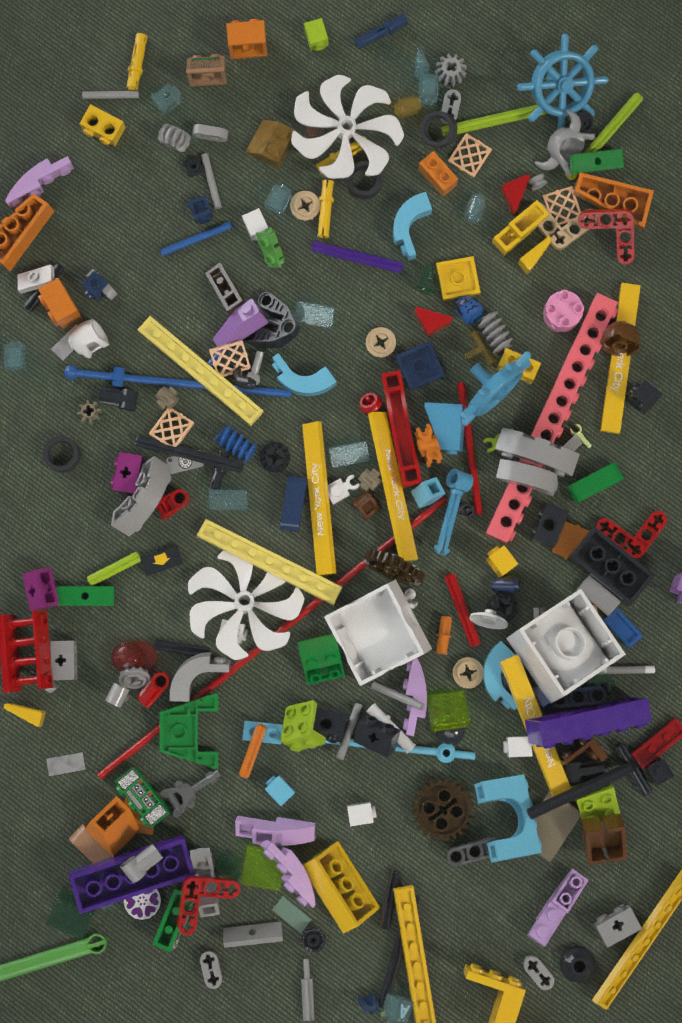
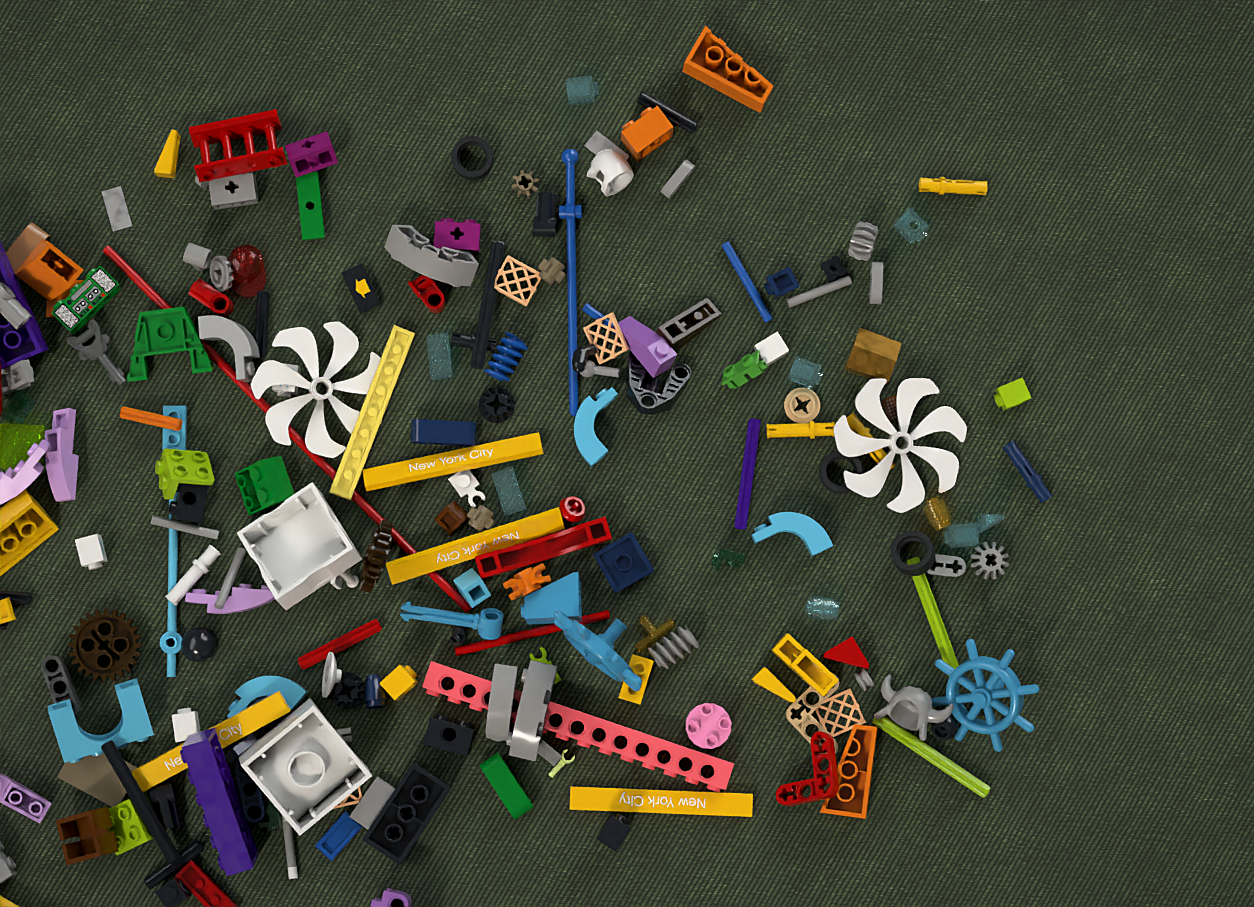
camera: 80 degrees right, 0 degrees up
(33, 179) = (788, 81): lavender slope -> none
(35, 278) = (675, 102): white plate -> none
(94, 285) = (673, 170): dark blue bracket -> none
(105, 122) = (872, 157): yellow brick -> none
(110, 94) = (909, 160): light grey bar -> none
(114, 568) = (346, 235): lime axle -> none
(180, 464) = (475, 294): light grey sticker -> none
(200, 371) = (587, 305): light yellow tile -> none
(206, 70) = (951, 269): medium nougat slope -> none
(246, 39) = (994, 311): orange brick -> none
(279, 789) = (110, 454): medium azure brick -> none
(315, 314) = (671, 432): clear light blue slope -> none
(377, 735) = (181, 559): black brick -> none
(382, 333) = (636, 512): tan gear -> none
(432, 321) = (678, 570): red slope -> none
(438, 174) = (858, 558): orange brick -> none
(443, 635) = (307, 625): orange axle -> none
(448, 711) = (218, 638): clear neon green plate -> none
(458, 278) = (735, 597): yellow tile -> none
(469, 309) = (698, 614): blue head -> none
(473, 665) = (257, 654): tan gear -> none
(477, 143) = (904, 603): light nougat window -> none
(569, 539) = (437, 761): orange piece -> none
(592, 749) = (190, 813): reddish brown bracket -> none
(604, 161) = (900, 758): green tile -> none
(620, 338) = (682, 797): reddish brown cylinder -> none
(637, 540) = (444, 842): red beam -> none

